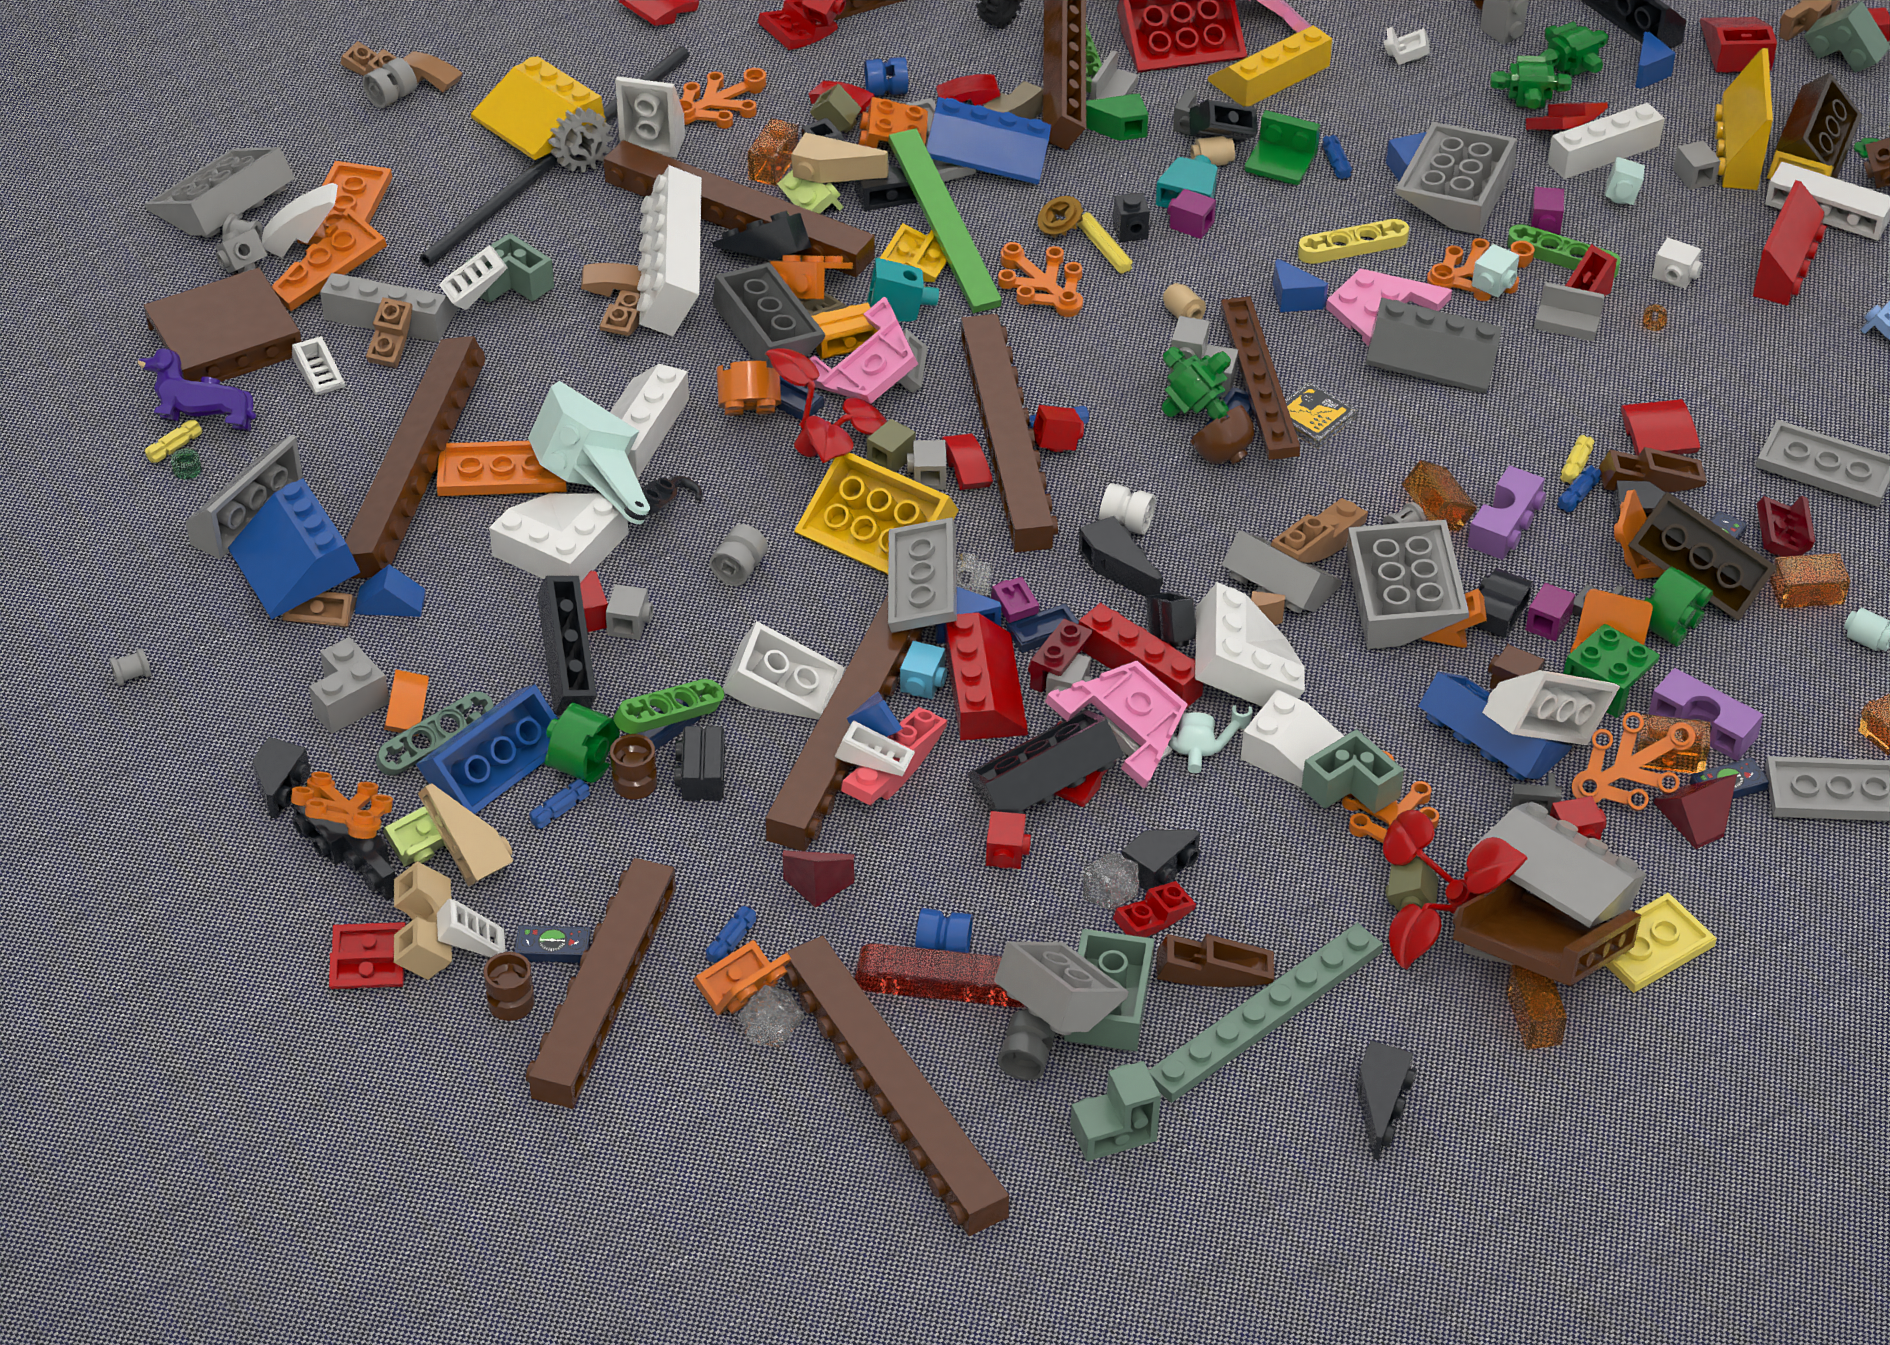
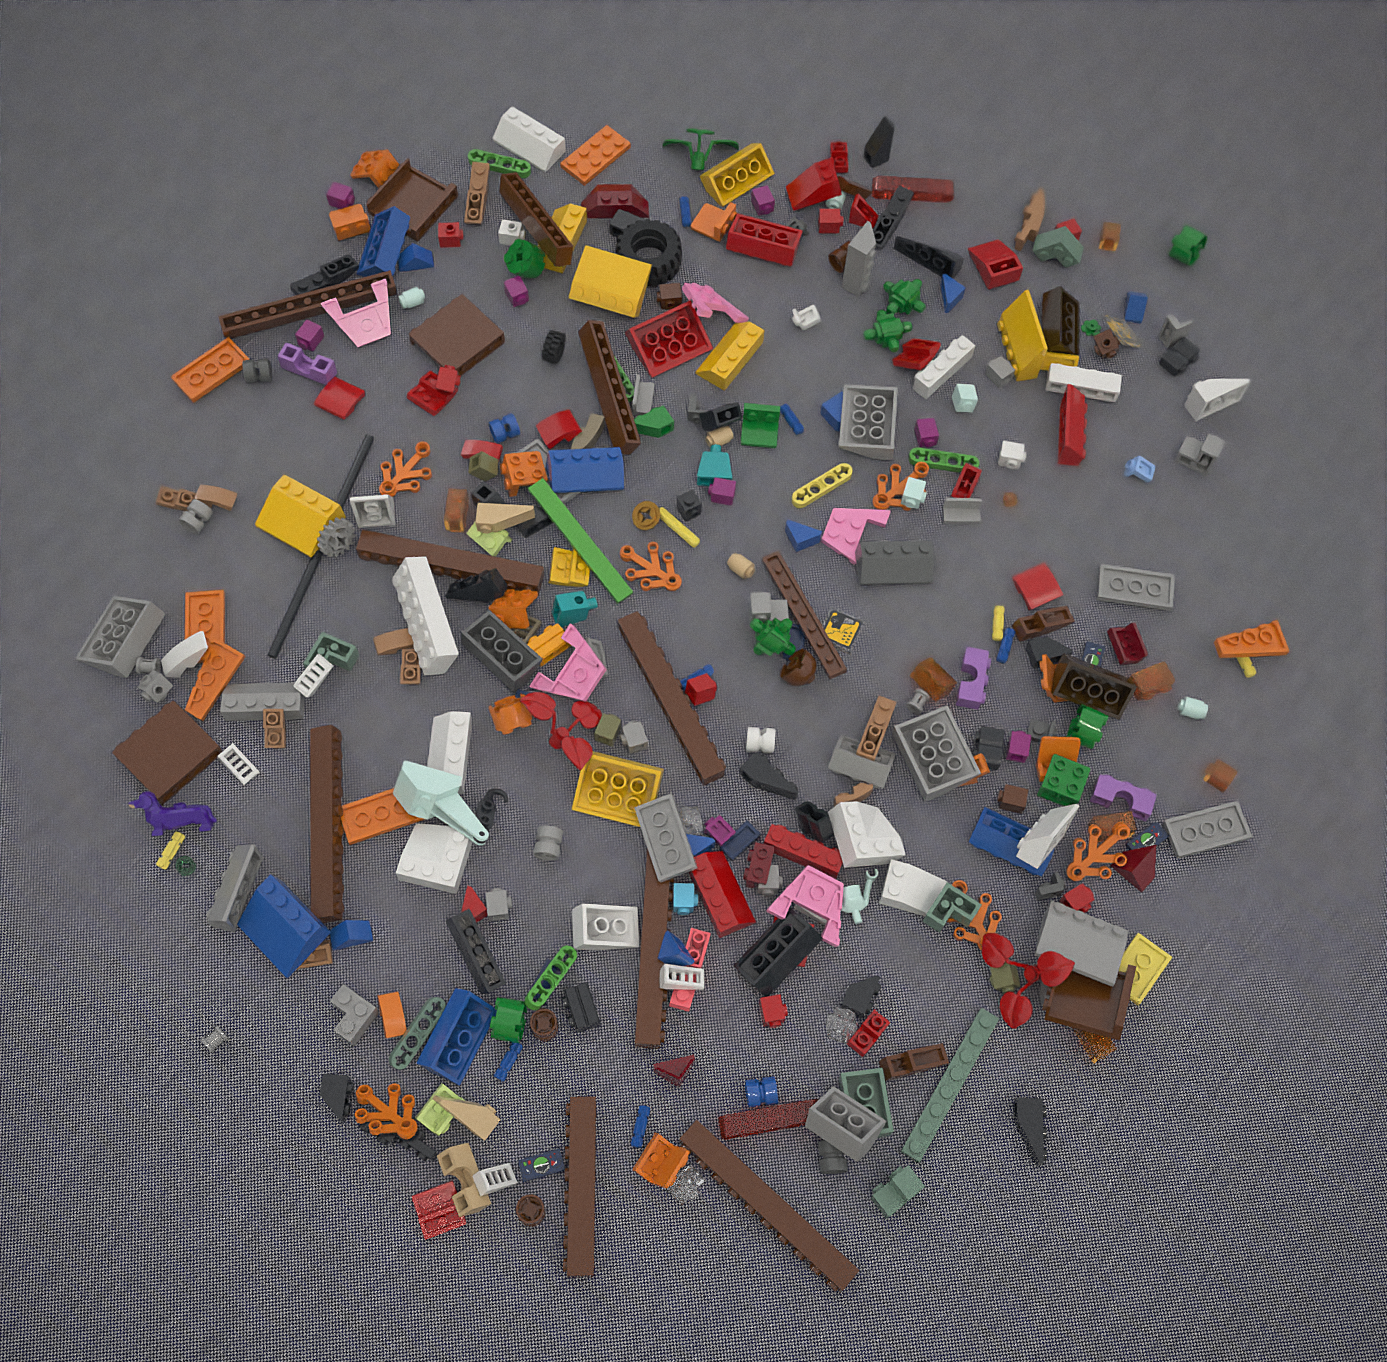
camera: 20 degrees left, 20 degrees up
(968, 461) = (656, 727): red slope -> none

